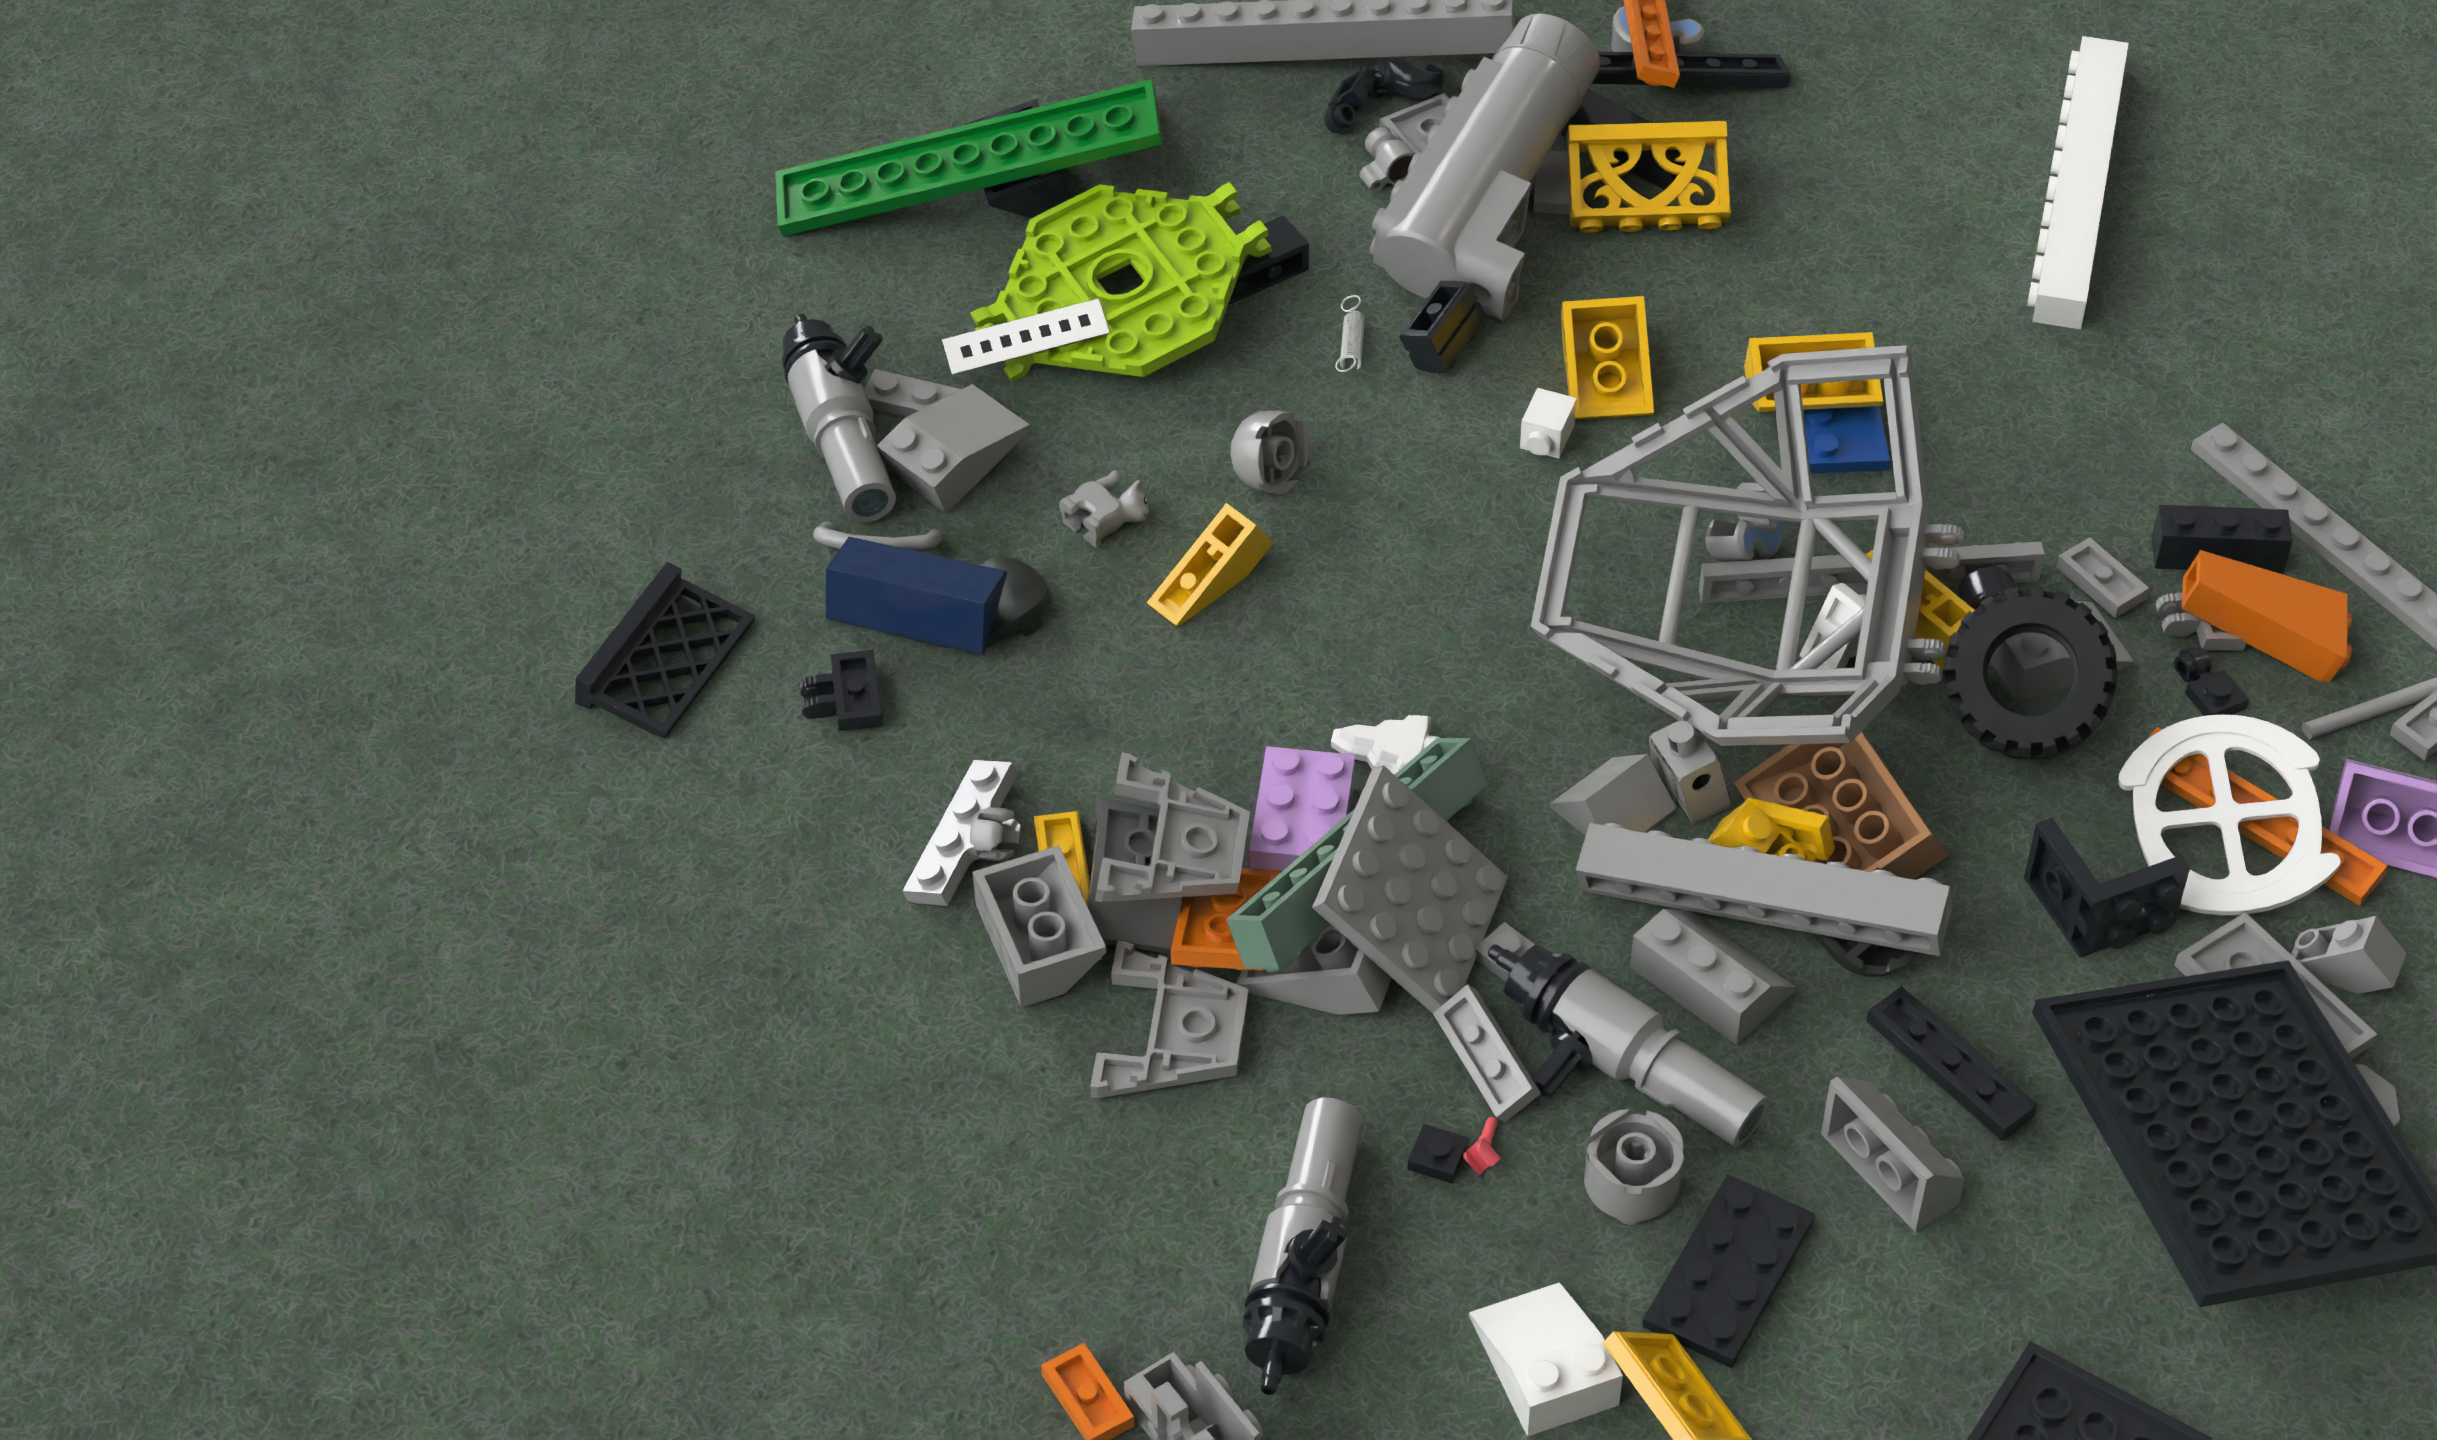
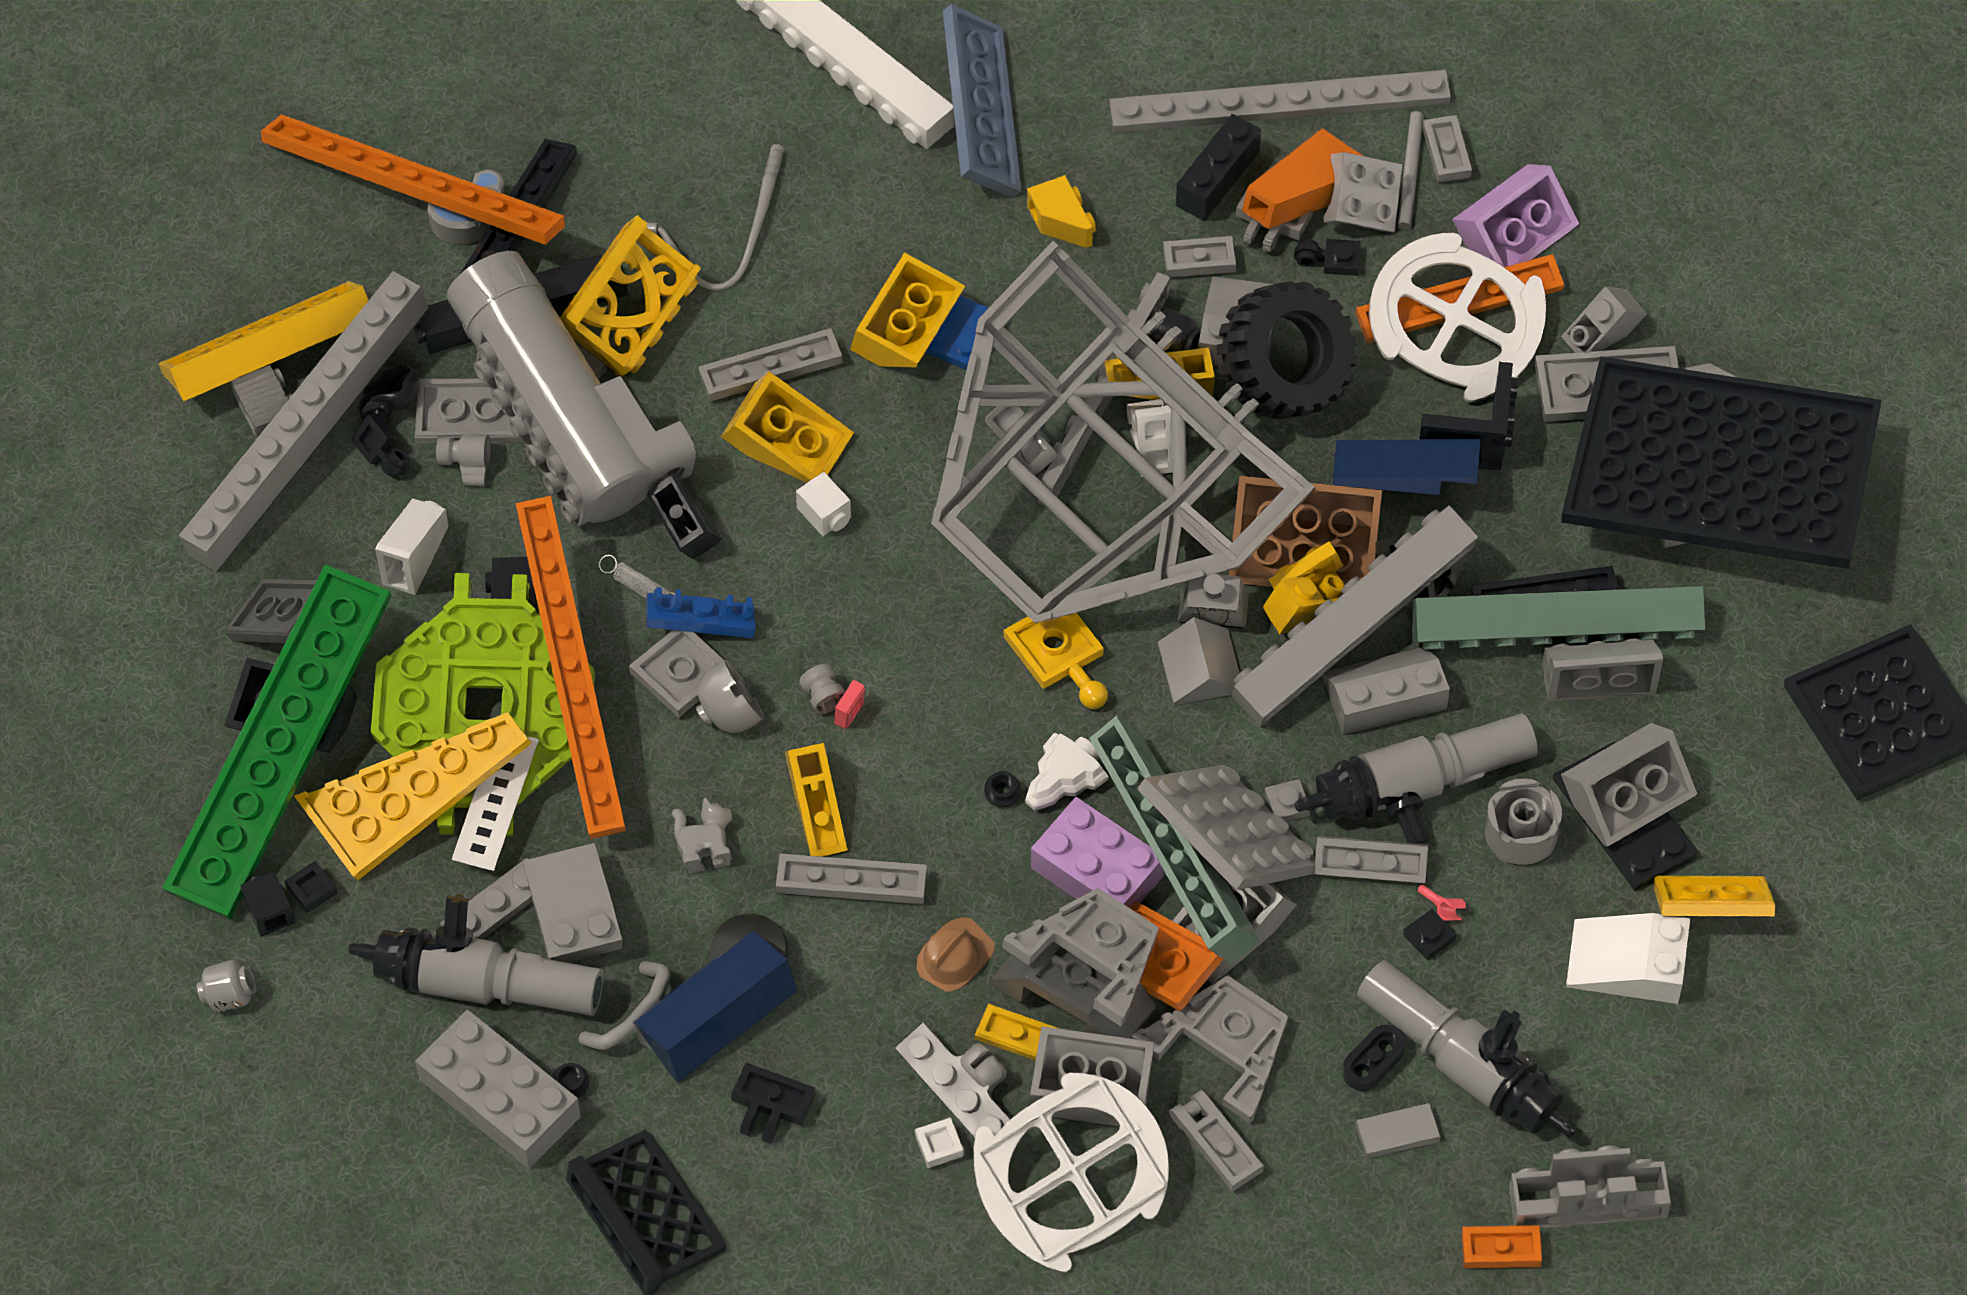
camera: 60 degrees left, 10 degrees up
(704, 258) = (226, 986): none -> light grey head
(720, 485) = (498, 1089): none -> light grey brick
(770, 536) = (573, 1078): none -> black plate
(808, 245) = (267, 903): none -> black brick
(850, 267) = (311, 886): none -> black plate
(888, 843) = (939, 1142): none -> white plate
(988, 272) = (399, 797): none -> yellow wing
(991, 981) = (1008, 1208): none -> white window
(1046, 1075) = (1217, 1141): none -> light grey plate
(1101, 750) = (954, 954): none -> medium nougat piece
(1142, 639) = (851, 878): none -> light grey plate
(1172, 1234) = (1397, 1131): none -> light grey tile
(1191, 307) = (570, 668): none -> orange plate
(1245, 1165) = (1372, 1058): none -> black plate
(1258, 158) = (411, 545): none -> white slope
(1279, 391) = (675, 669): none -> light grey plate
(1334, 522) = (821, 685): none -> light grey wheel
(1336, 545) = (849, 704): none -> coral tile
(1336, 700) = (998, 780): none -> black plate
(1346, 389) = (700, 614): none -> blue plate
(1513, 682) = (1054, 664): none -> yellow plate
(1679, 318) = (781, 359): none -> light grey plate
(1755, 1239) = (1630, 783): none -> light grey slope
(1871, 227) = (766, 191): none -> light grey piece
(1926, 1079) = (1557, 615): none -> sand green brick
(1989, 848) = (1406, 464): none -> dark blue slope
(2049, 442) = (1060, 213): none -> yellow slope
(2115, 322) = (981, 101): none -> sand blue plate
(2303, 666) = (1364, 192): none -> light grey piece

